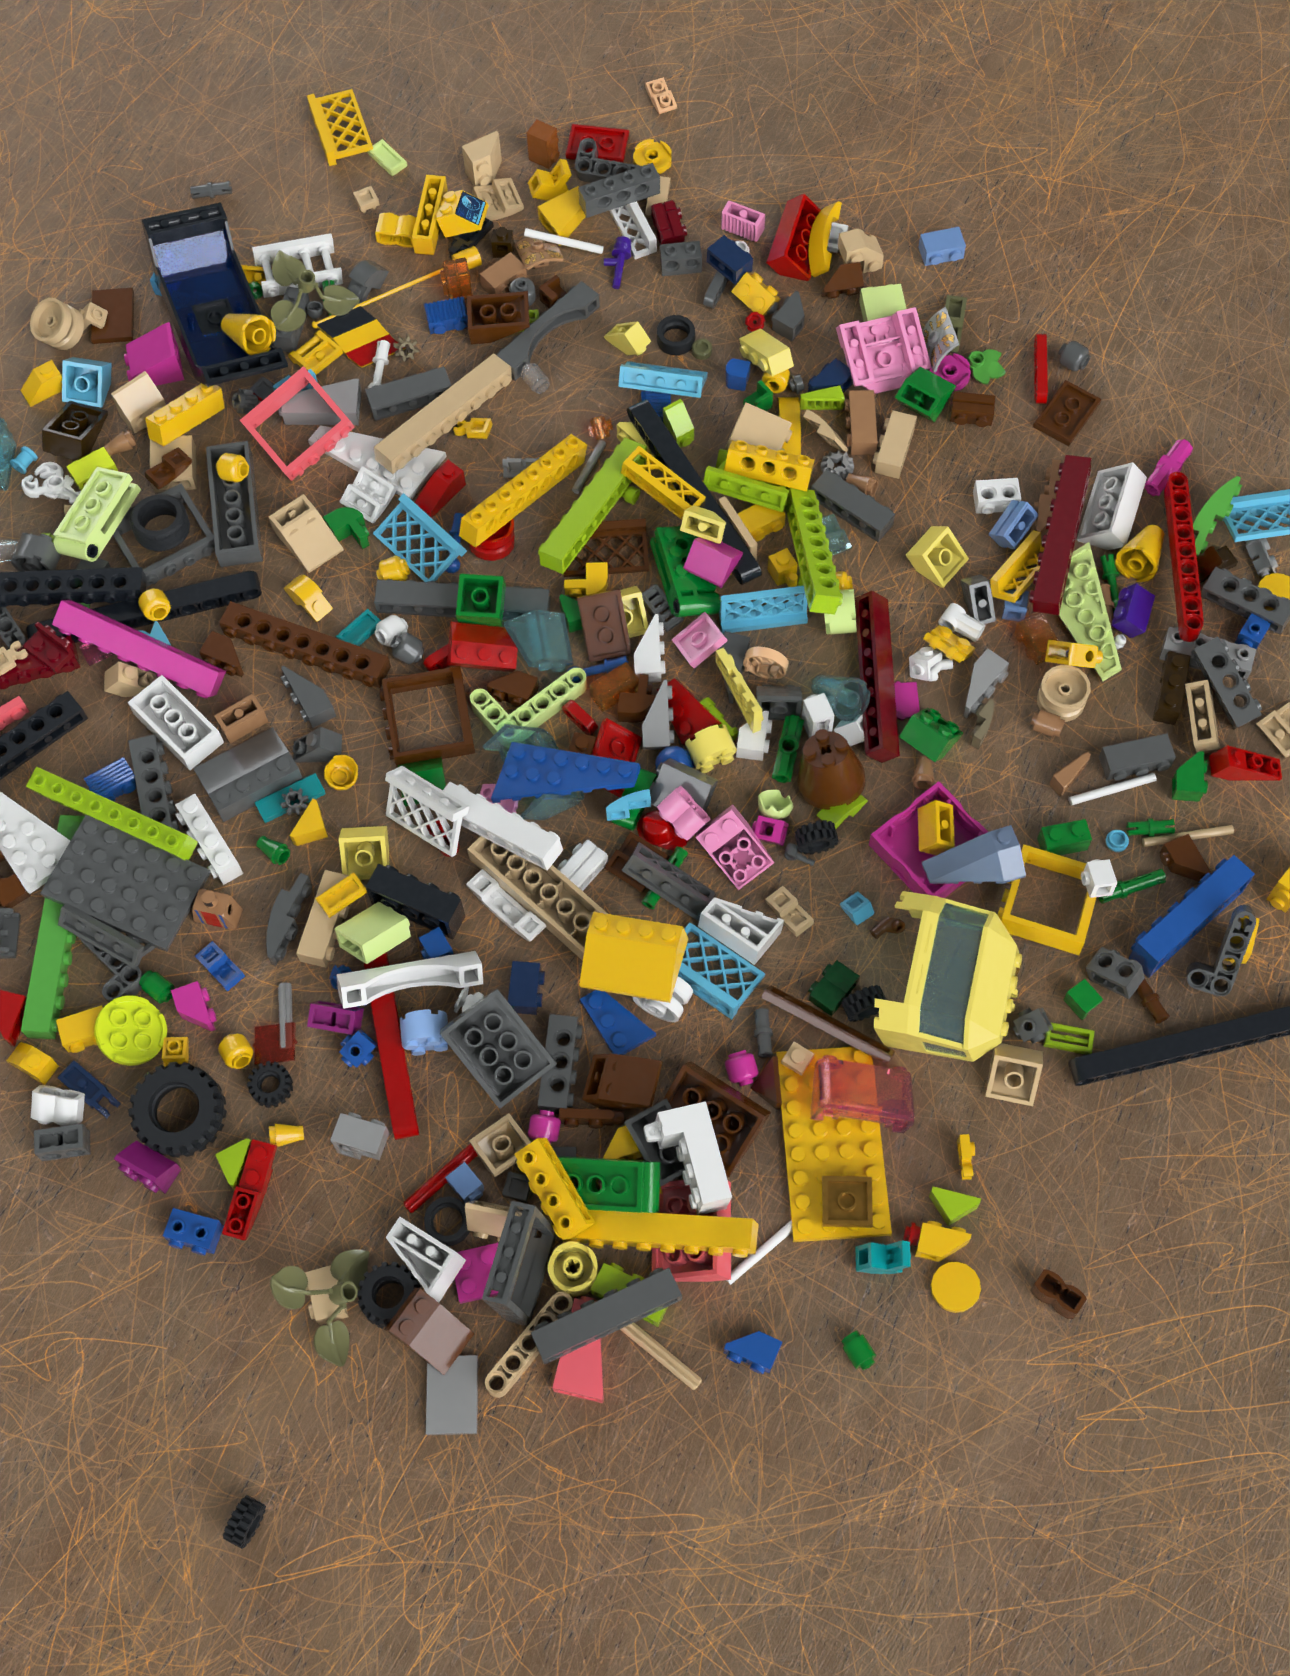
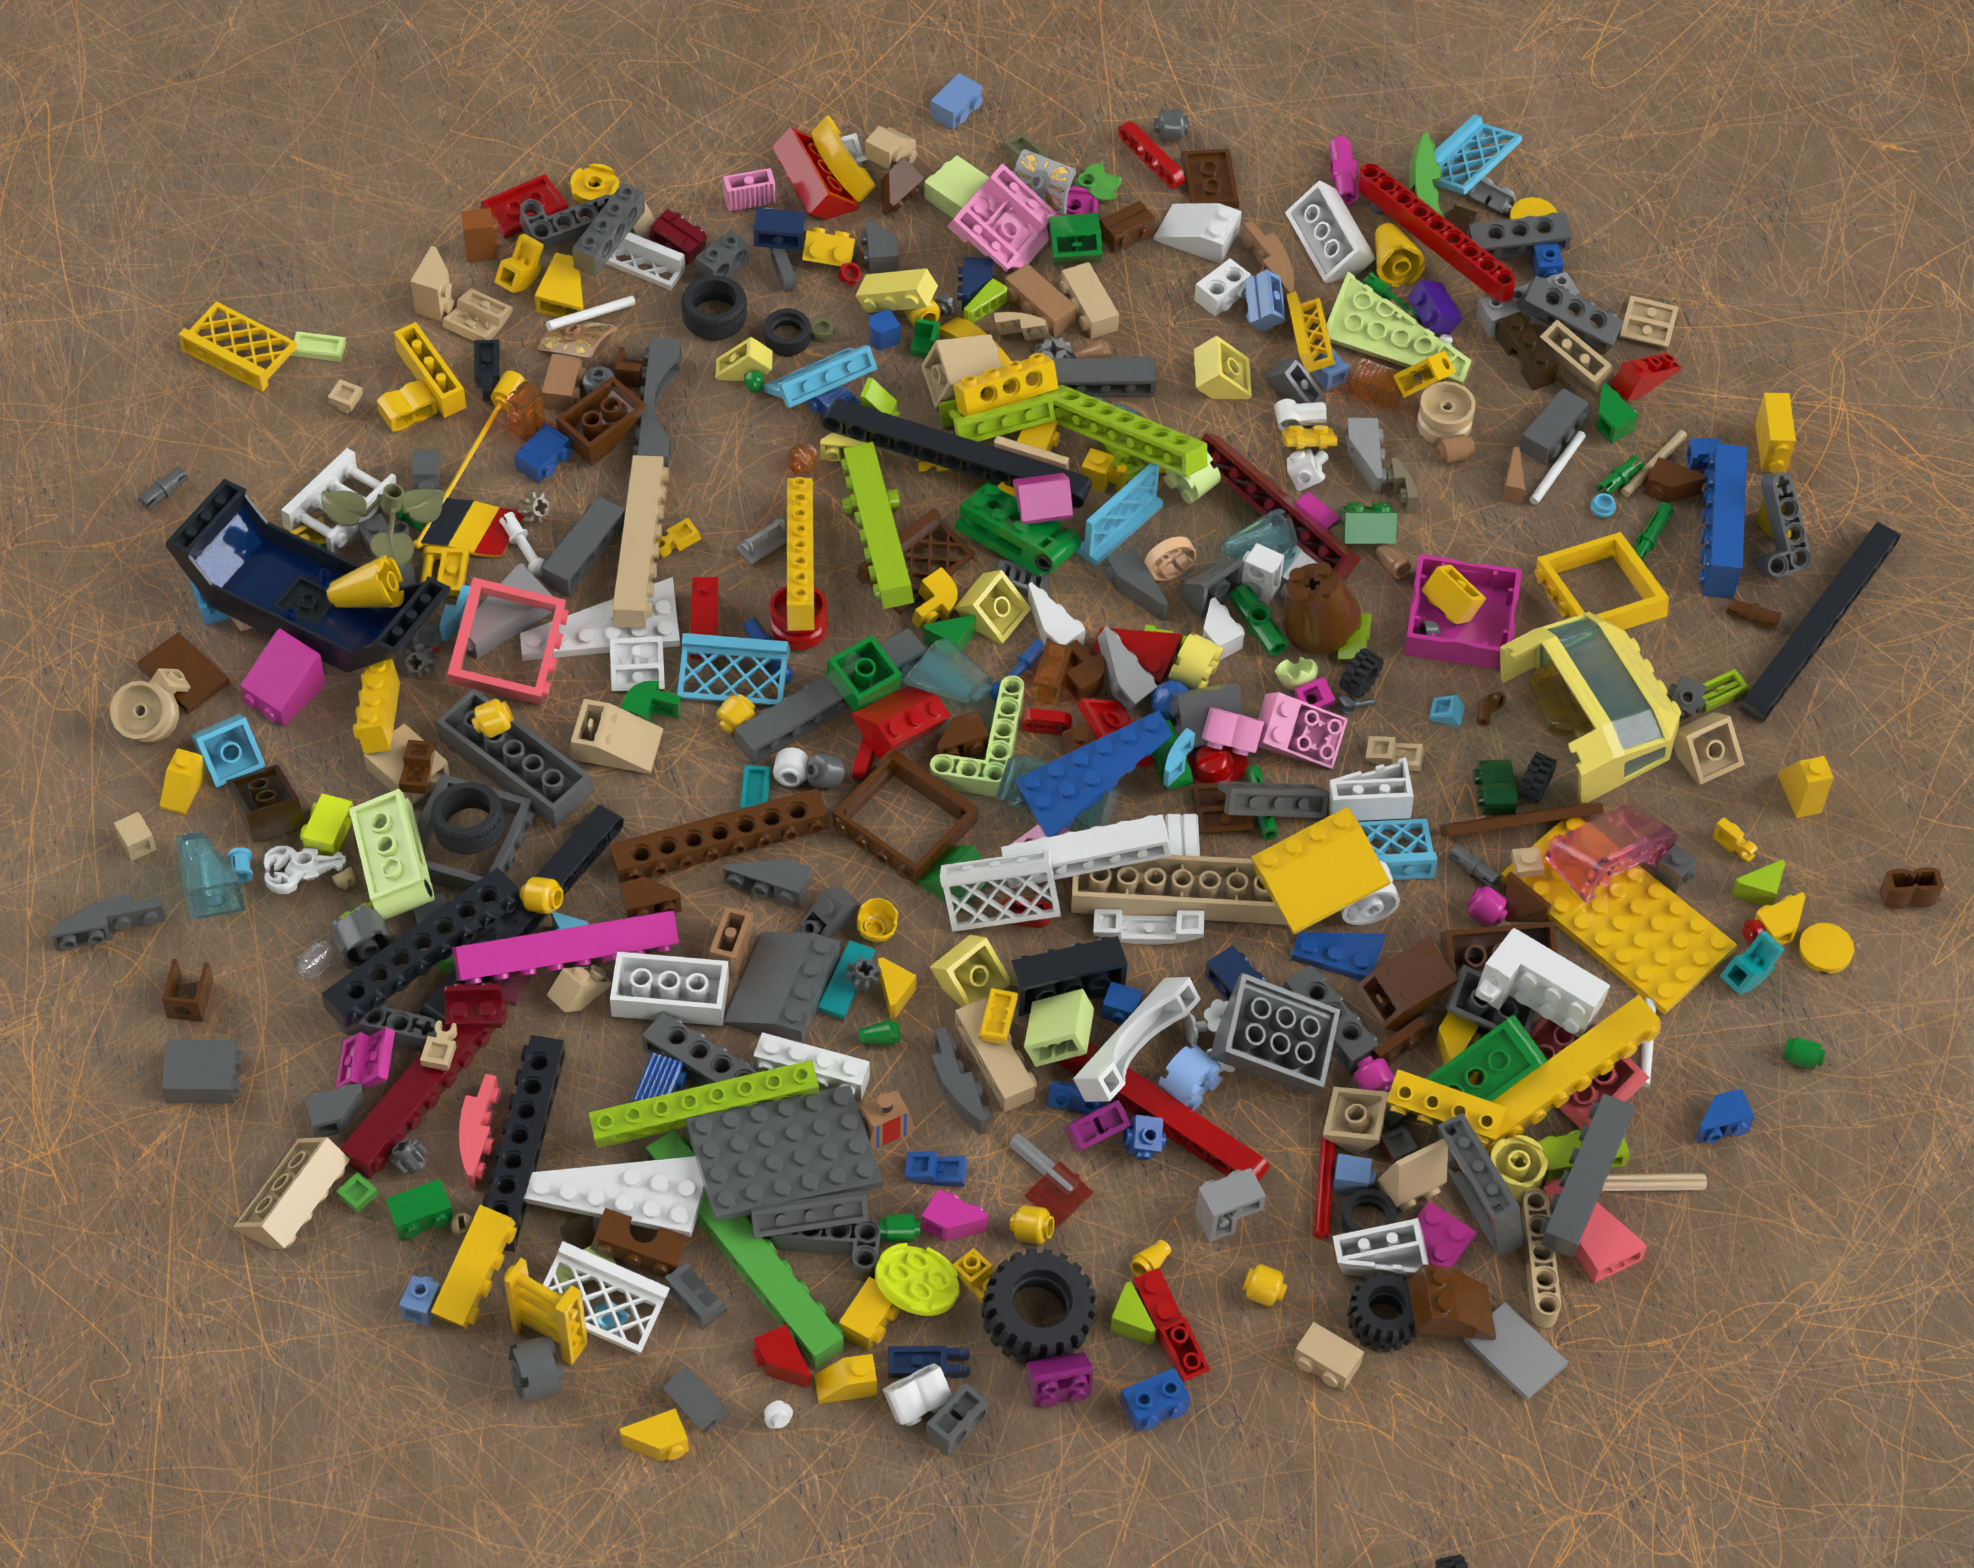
camera: 45 degrees left, 10 degrees down
(122, 442) = (329, 780): medium nougat cone -> none
(137, 401) = (315, 730): tan slope -> none
(262, 1073) = (1092, 1244): black tyre -> none
(290, 1287) = (1353, 1329): olive plant -> none
(308, 594) = (677, 787): yellow brick -> none
(334, 1212) = (1264, 1285): none -> yellow head
(461, 213) = (465, 348): yellow slope -> none
(502, 237) = (526, 346): dark brown brick -> none
(535, 378) = (691, 454): clear brick -> none
(589, 466) = (823, 502): light grey bar -> none
(604, 625) = (992, 624): reddish brown tile -> none
(621, 252) = (656, 291): dark purple piece -> none
(622, 355) = (754, 381): none -> green hinge
(646, 303) = (708, 289): none -> black tyre
(655, 486) = (930, 468): yellow fence -> none
(660, 95) = (543, 126): light nougat slope -> none
(699, 640) = (1090, 579): bright pink plate -> none
(703, 524) = (1011, 468): light yellow slope -> none
(745, 699) = (1185, 593): light yellow wing -> none
(847, 1201) = (1682, 941): pearl gold plate -> none
(899, 841) = (1429, 627): none -> dark grey hinge
(900, 1144) = (1676, 868): none -> dark grey brick
(986, 858) = (1524, 586): sand blue wedge -> none
(1023, 445) = (1200, 229): none -> white slope
(1054, 1158) = (1807, 785): none -> yellow slope
(1061, 535) = (1320, 279): dark red brick -> none
(1065, 837) = (1562, 529): green brick -> none
(1082, 999) = (1703, 649): green panel -> none
(1099, 878) = (1629, 537): white brick -> none
(1112, 976) = (1709, 611): dark grey brick -> none
(1227, 850) = (1698, 452): none -> blue brick

